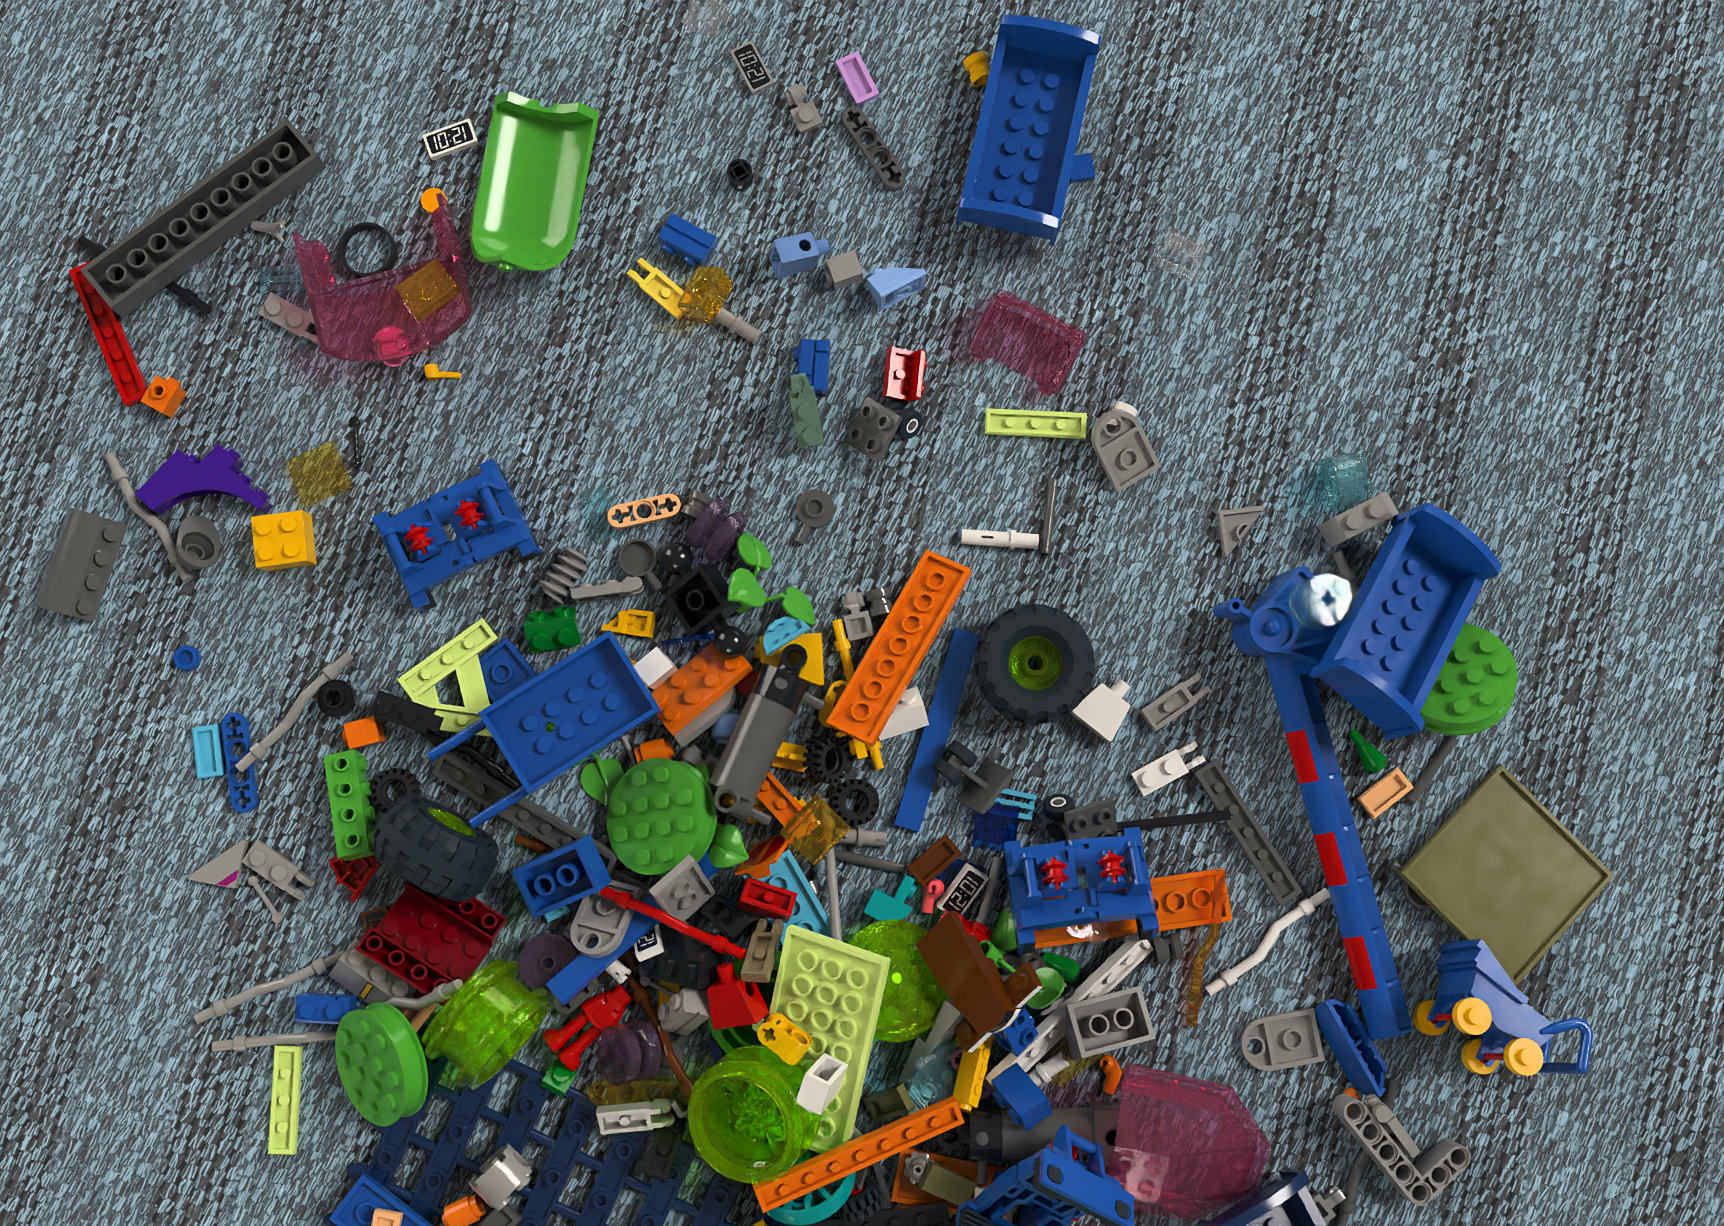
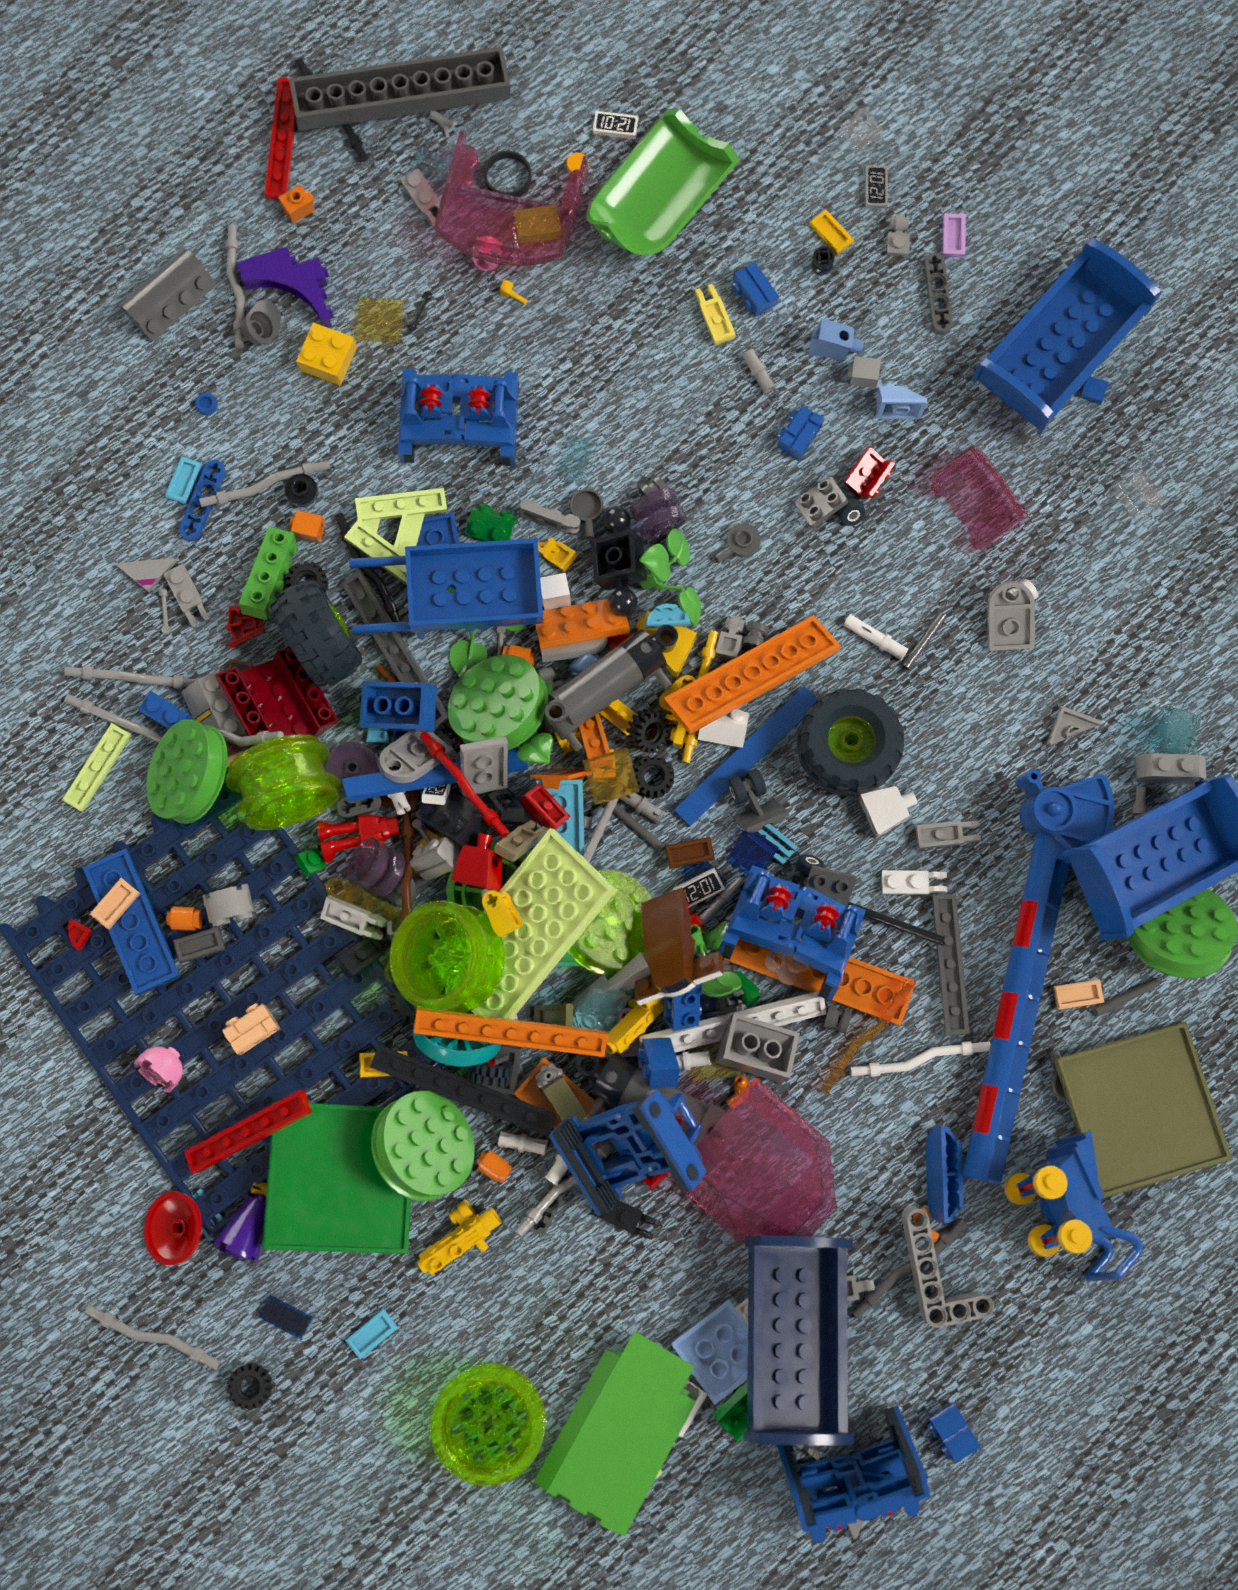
camera: 30 degrees right, 5 degrees down
(405, 713) = (348, 526): black hinge -> none
(564, 573) = (523, 487): light grey piece -> none
(664, 514) = (623, 484): light nougat beam -> none
(688, 639) = (591, 584): clear blue piece -> none
(705, 294) = (747, 334): clear yellow brick -> none
(732, 139) = (831, 232): none -> yellow tile
(805, 411) = (776, 459): sand green hinge -> none
(821, 1084) = (512, 957): white brick -> none
(886, 907) = (632, 865): teal brick -> none
(930, 894) = (674, 877): coral arm -> none
(978, 67) = (1052, 270): yellow wheel -> none
(1035, 423) = (952, 565): yellowish green tile -> none
(1285, 1040) = (892, 1142): light grey tile -> none
(1321, 601) = (1104, 806): clear light blue brick -> none
(1369, 755) = (1081, 962): green cone -> none
(1391, 1124) = (942, 1250): light grey hinge -> none

